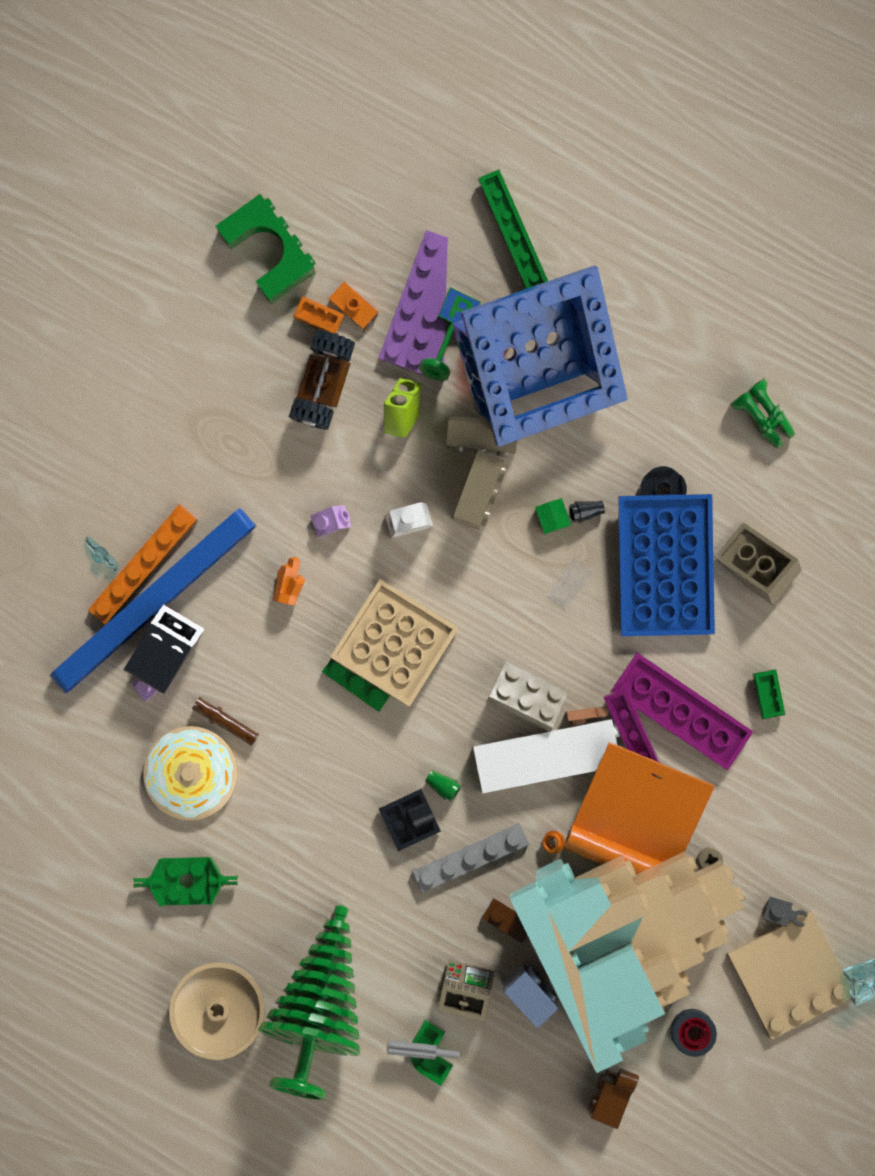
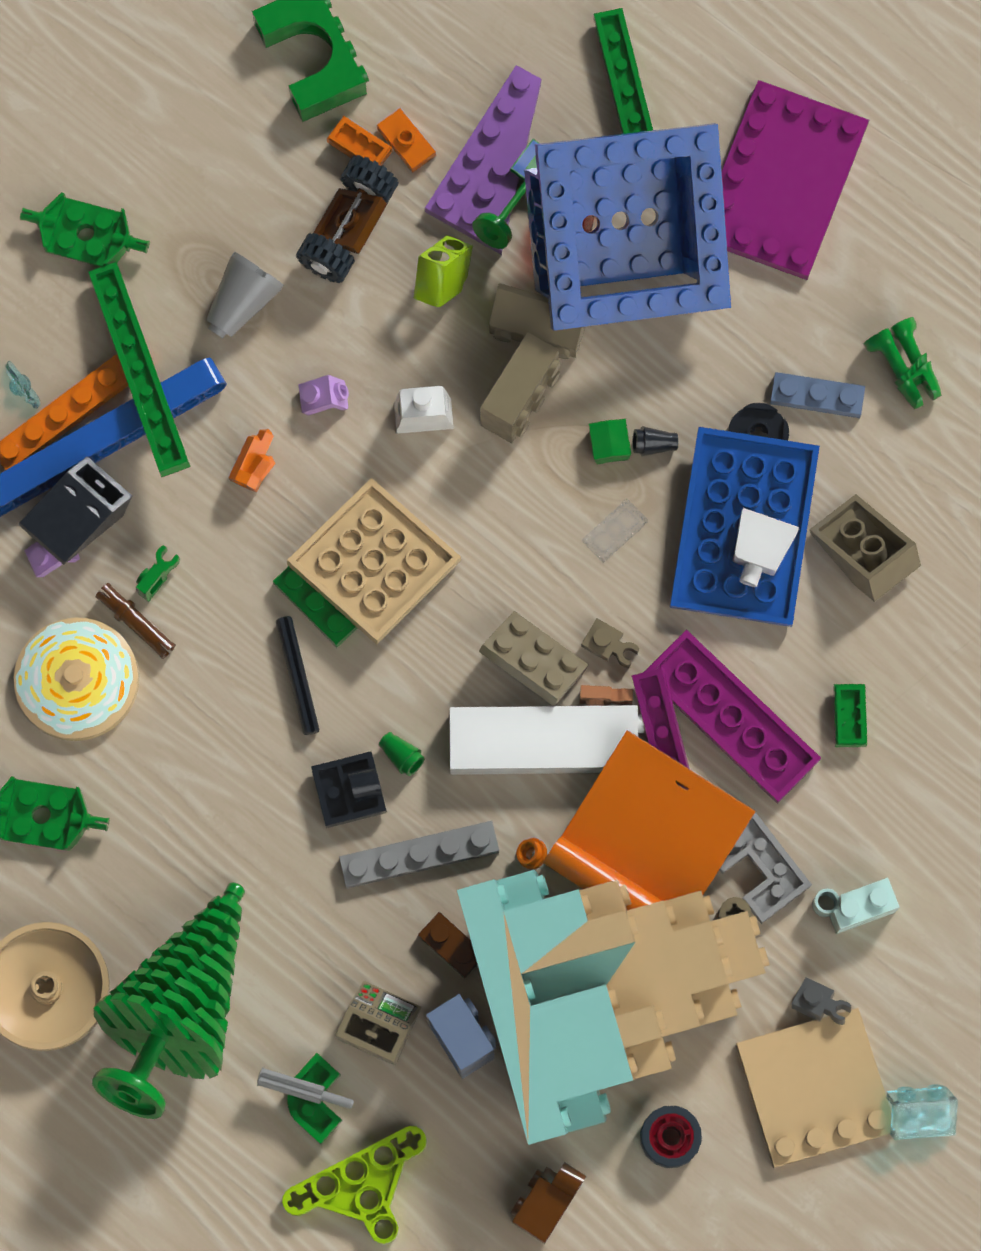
camera: 10 degrees right, 10 degrees down
(105, 419) = (66, 217): none -> green plate
(188, 530) = (139, 370): none -> green plate
(231, 687) = (151, 580): none -> green plate
(253, 455) = (240, 295): none -> light grey cone
(354, 739) = (297, 675): none -> black axle
(486, 1101) = (347, 1192): none -> lime beam
(577, 670) = (605, 641): none -> dark tan plate
(649, 280) = (786, 177): none -> magenta plate
(682, 581) = (761, 545): none -> white torso
(701, 450) = (817, 395): none -> sand blue plate
(740, 825) = (782, 875): none -> light grey plate
(800, 836) = (858, 905): none -> light aqua hinge

